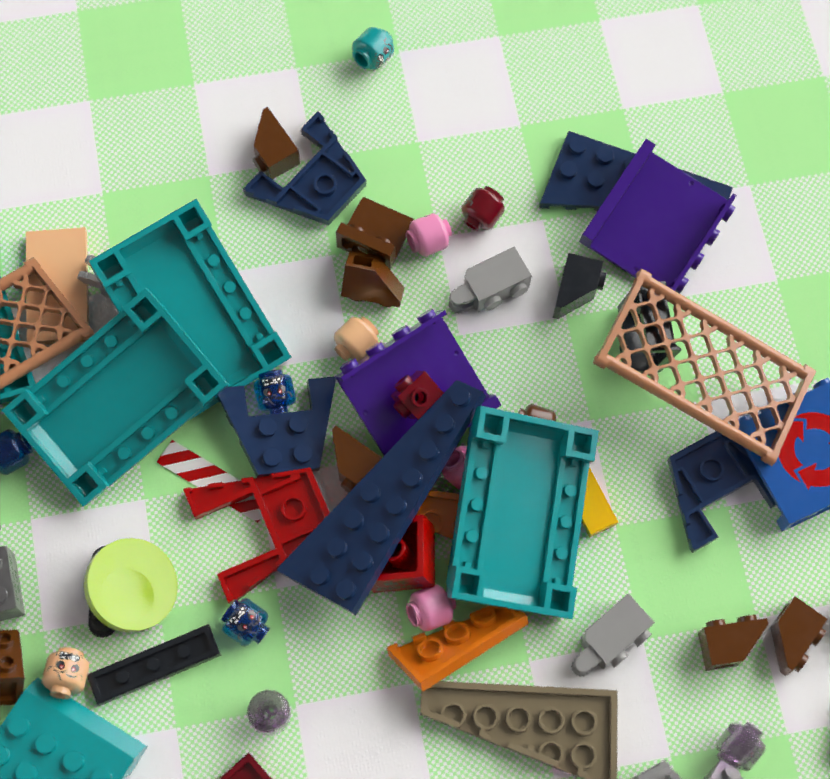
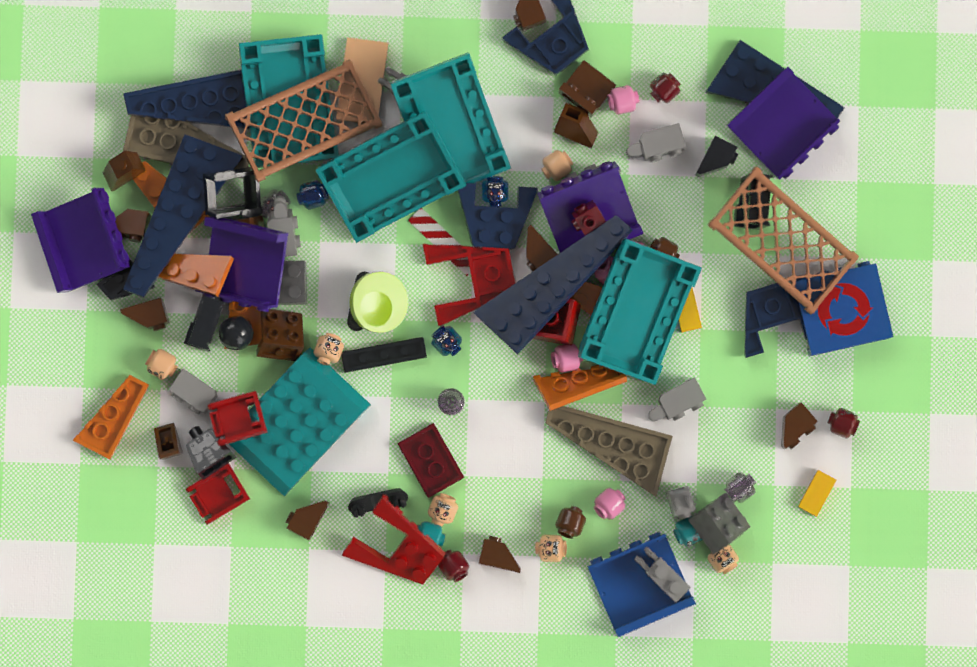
camera: 15 degrees right, 15 degrees up
(730, 643) = (752, 422): reddish brown slope -> none

